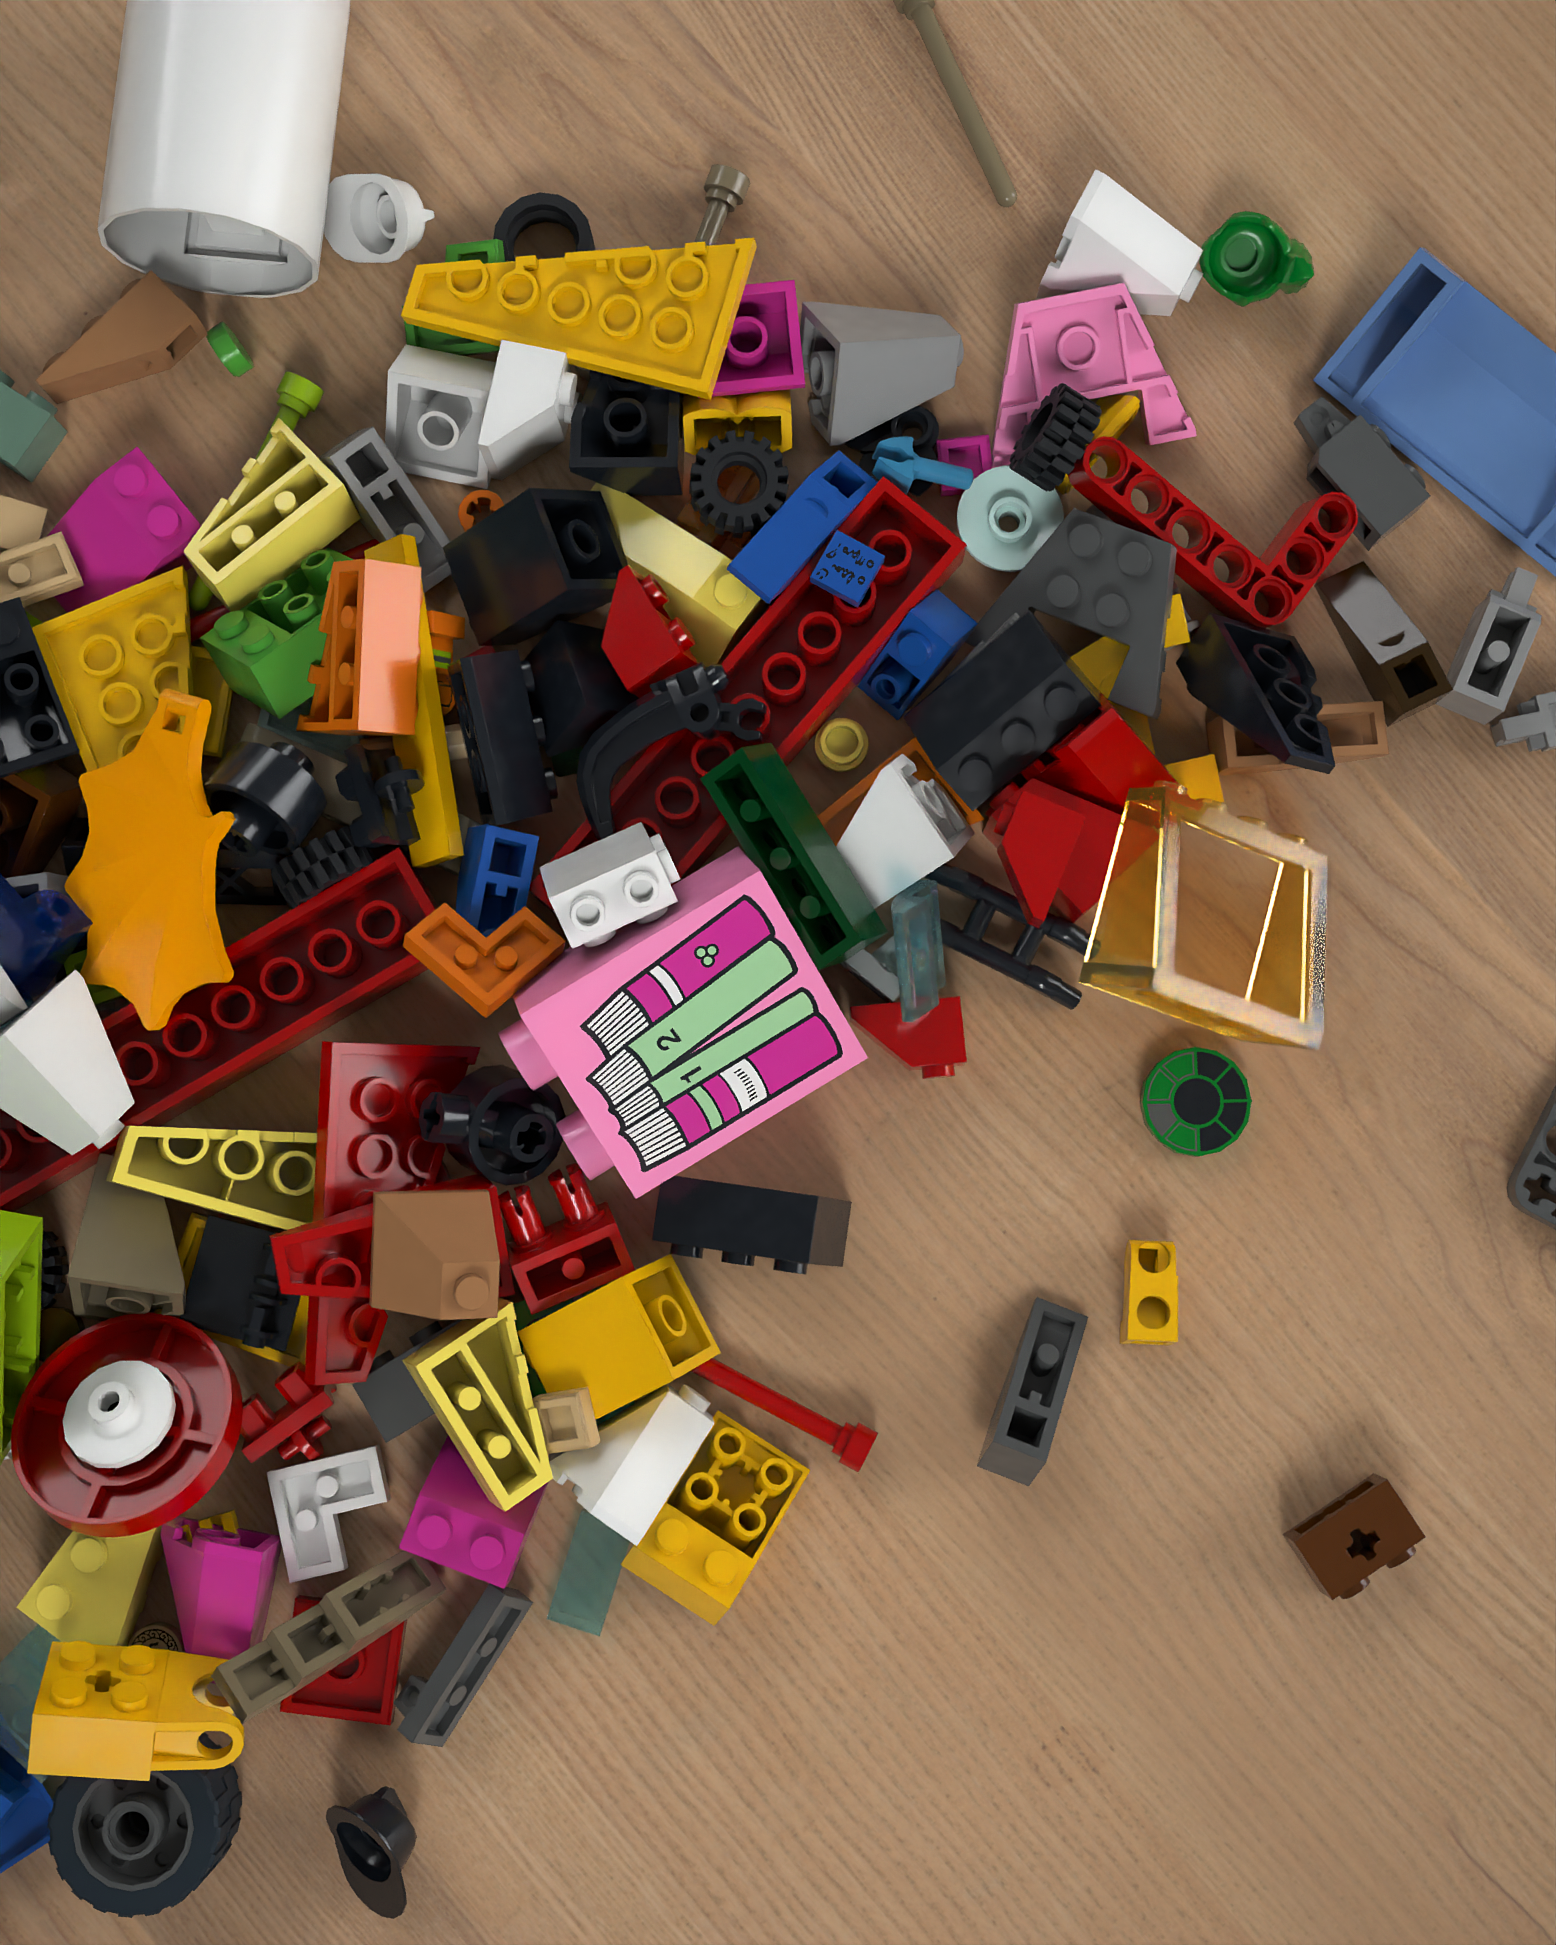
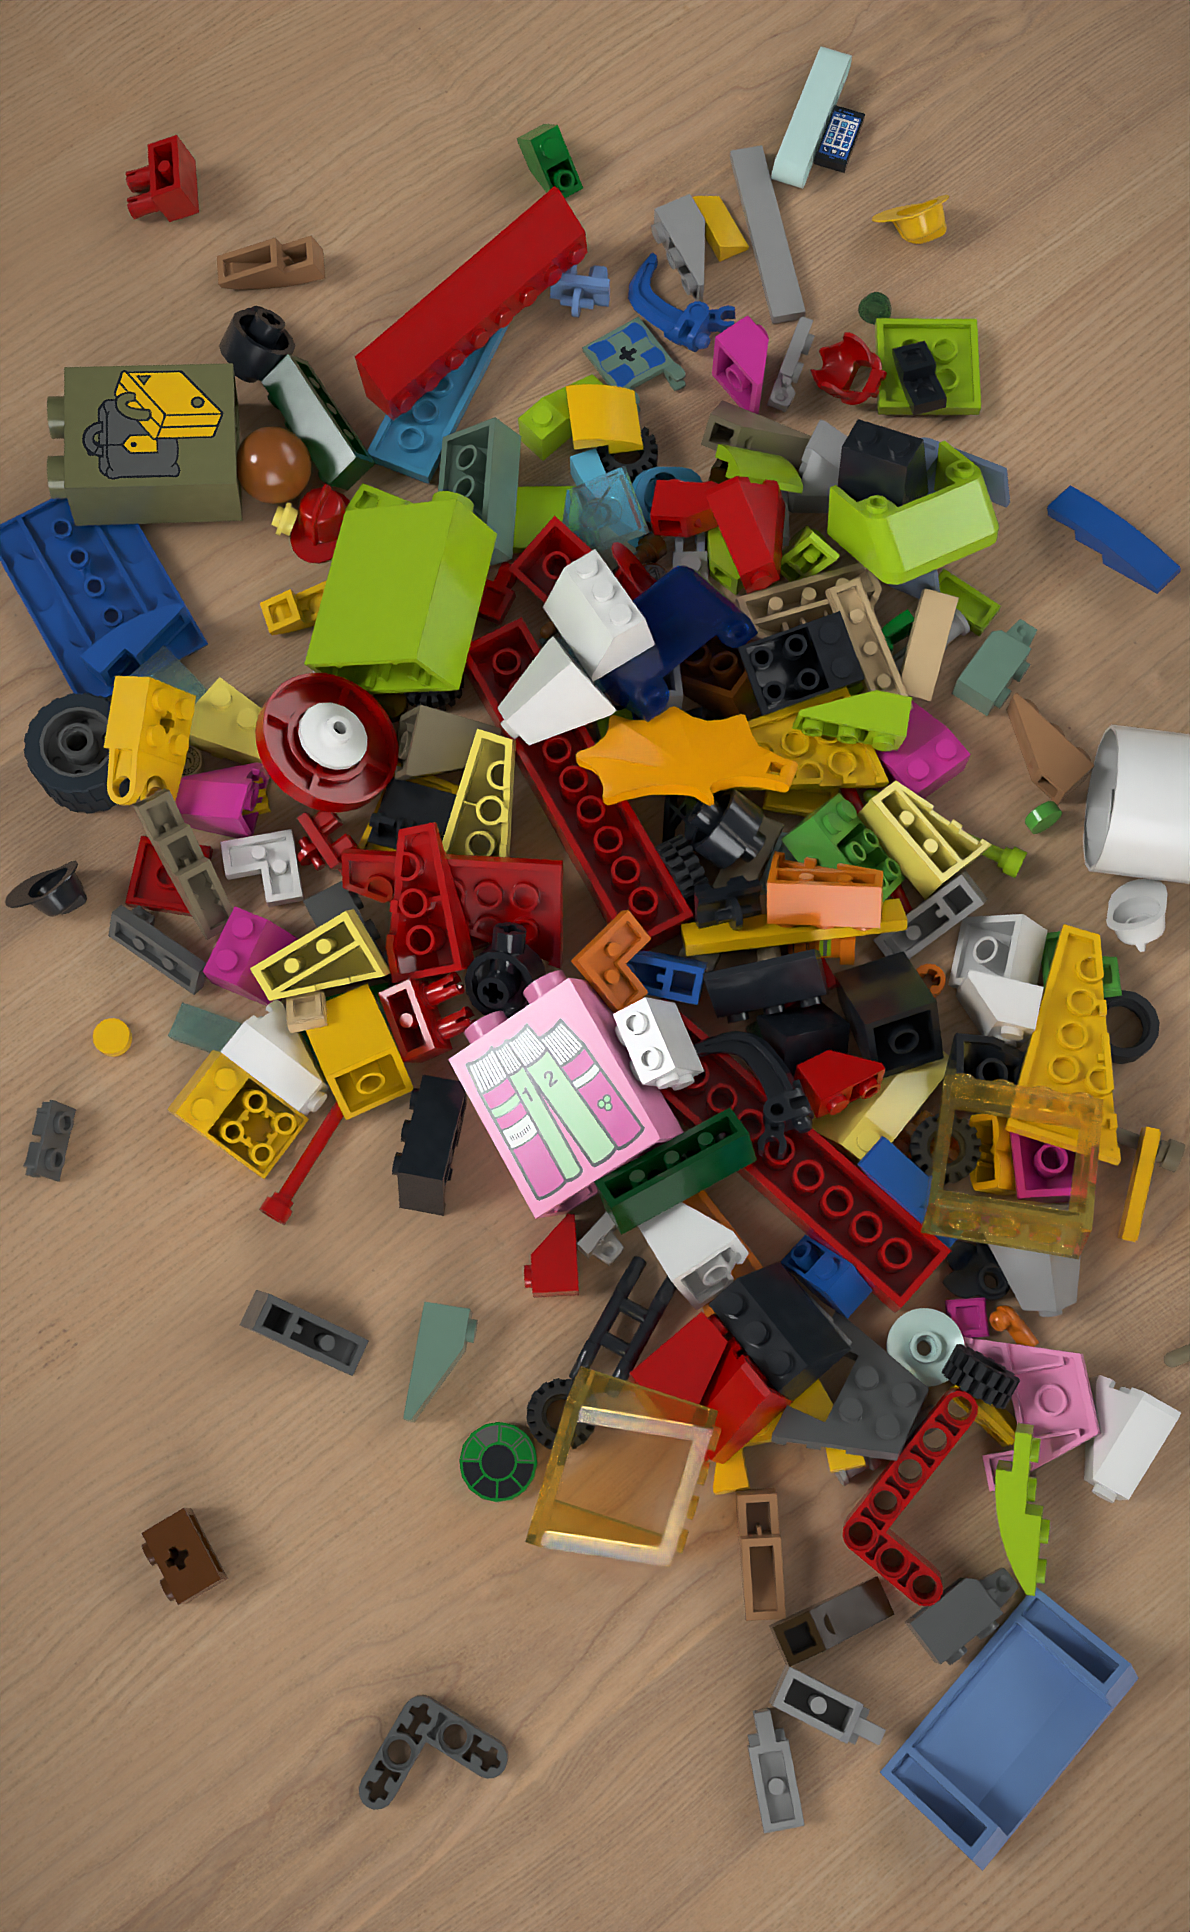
camera: 90 degrees right, 10 degrees down
(84, 590) = (866, 718): none -> lime slope
(434, 1254) = (418, 927): medium nougat slope -> none
(603, 1723) = (112, 1037): none -> yellow tile
(773, 226) = (1139, 1184): none -> yellow tile
(792, 1802) = (54, 1127): none -> dark grey hinge
(809, 283) = (1004, 1221): none -> clear yellow windscreen
(841, 744) = (762, 1220): light yellow plate -> none
(847, 568) = (882, 1220): blue tile -> none
(902, 466) = (961, 1276): dark azure bar -> none
(918, 948) = (611, 1258): clear light blue slope -> none
(967, 407) = (1007, 1318): none -> orange arm
(1036, 850) = (672, 1337): red slope -> none
(1045, 1192) = (439, 1348): none -> sand green slope
(1118, 1048) = (537, 1412): none -> black tyre
(1150, 1294) = (365, 1418): yellow leg -> none
(1222, 393) = (1020, 1522): none -> lime slope
(1254, 259) = (1124, 1542): green hair -> none
(1260, 687) = (790, 1519): black wedge -> none

